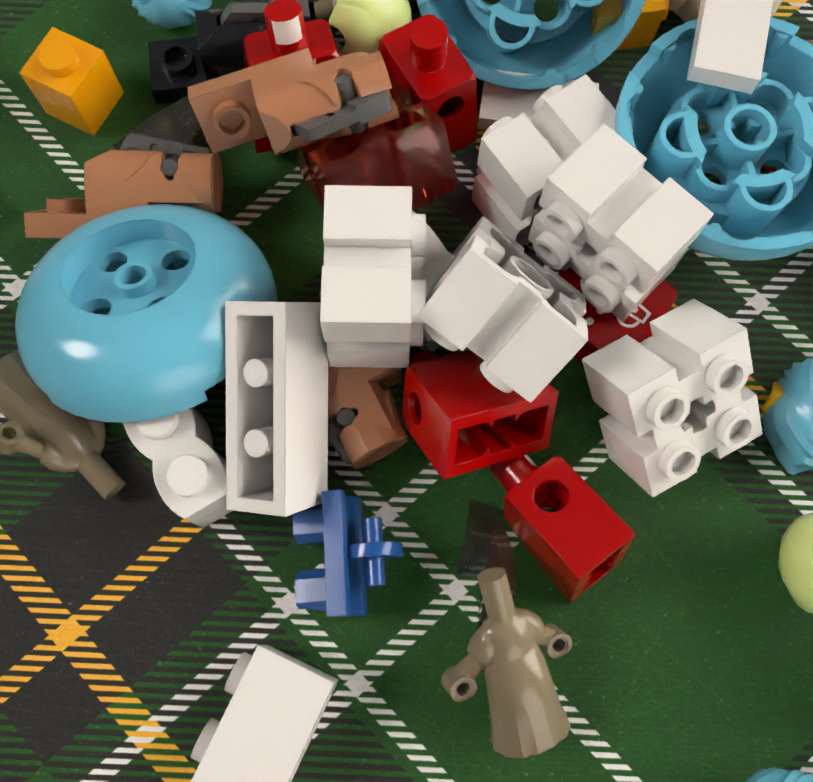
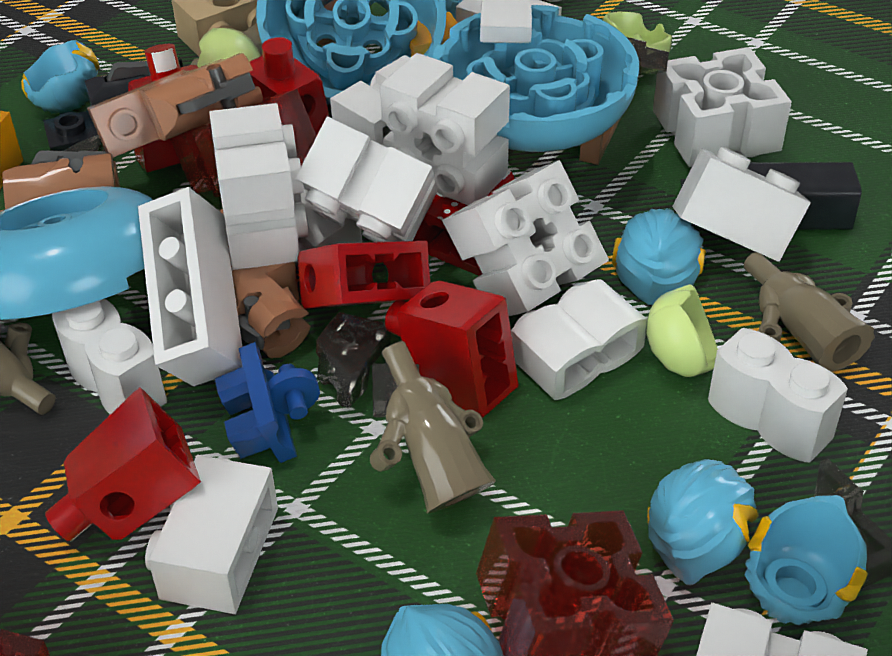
camera: 10 degrees left, 30 degrees down
(184, 643) = (125, 471): none -> red torso
(440, 506) = (347, 352): none -> clear smoke slope
(702, 531) = (577, 338): none -> white brick

